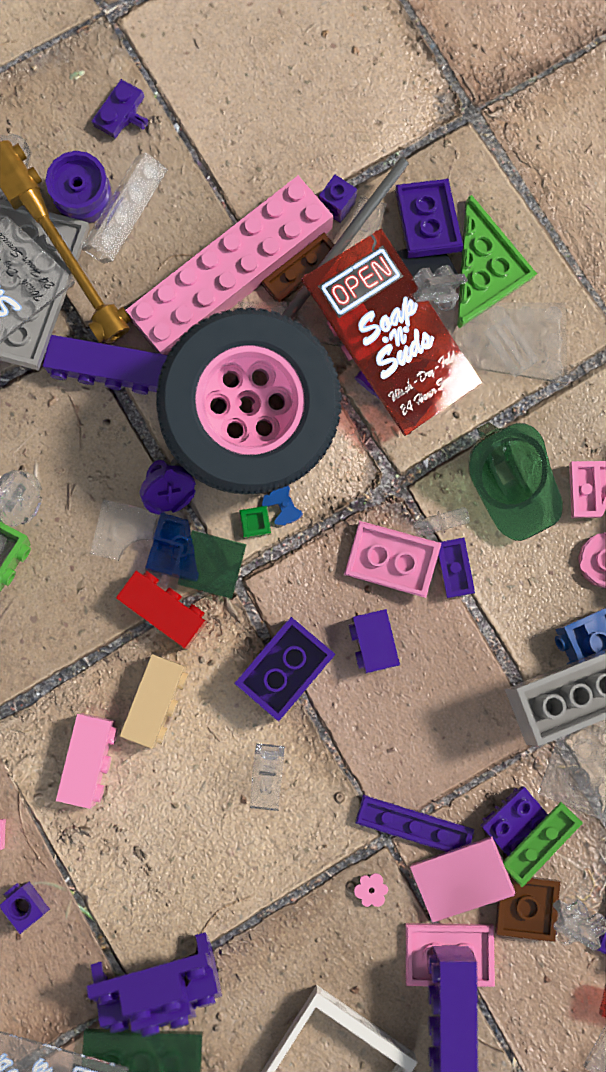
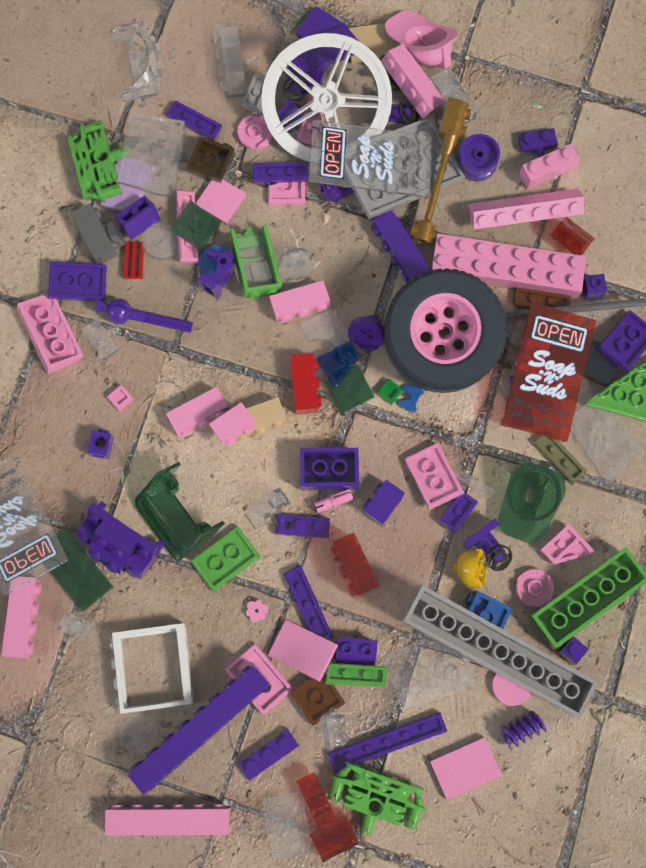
camera: 50 degrees right, 5 degrees down
(63, 530) = (300, 301): none -> bright pink brick
(124, 208) = (488, 188): clear brick -> none
(139, 737) = (232, 425): none -> bright pink brick
(160, 118) = (549, 166): none -> bright pink brick
(181, 898) = (169, 517): none -> clear green windscreen
(185, 189) = (526, 208): none -> bright pink brick
(262, 170) = (572, 236): none -> clear red brick
(282, 874) = (225, 558): none -> bright green tile
(322, 754) = (303, 526): none -> dark purple plate
(323, 694) = (334, 500): none -> bright pink axle
(421, 740) = (354, 566): none -> clear red brick
(438, 286) = (594, 377): clear hips -> none
(492, 405) = (560, 458): none -> olive tile
(520, 567) = (492, 549): none -> dark purple piece
(531, 611) = (471, 569): none -> yellow cylinder
(542, 1018) = (268, 754): none -> dark purple plate

